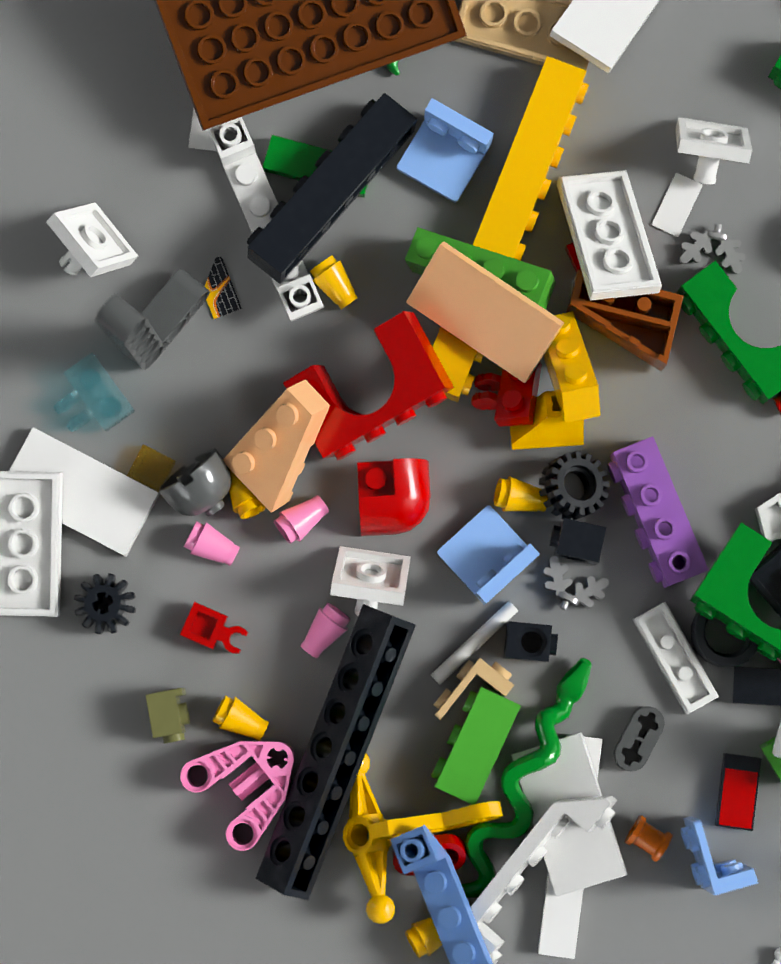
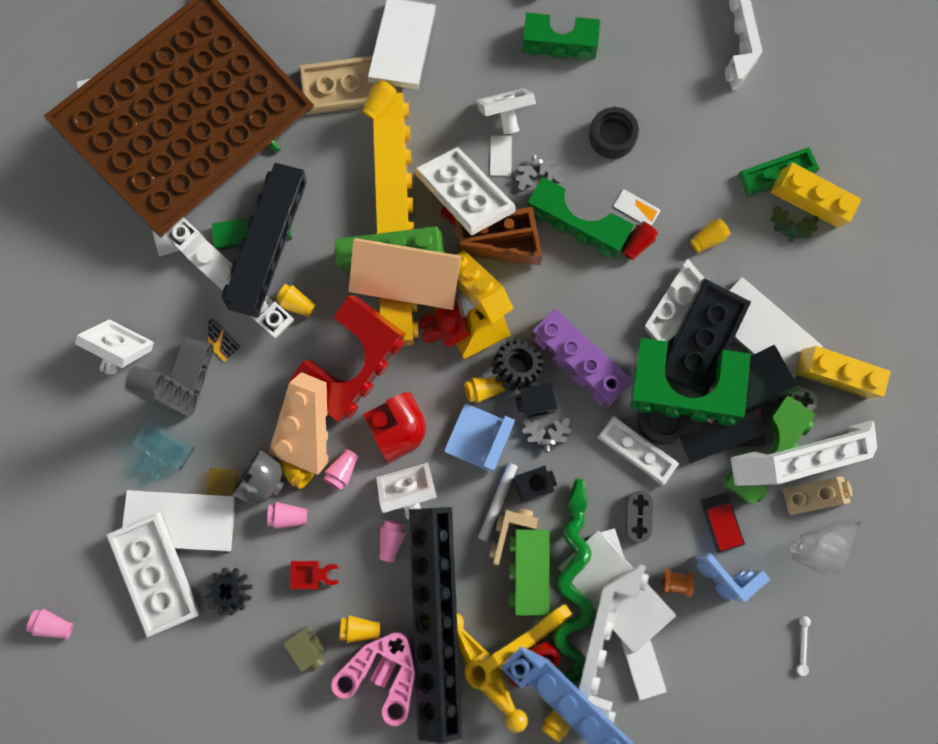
camera: 25 degrees left, 5 degrees down
(445, 151) = (333, 183): light blue bracket -> none
(551, 68) = (379, 98): none -> yellow cone

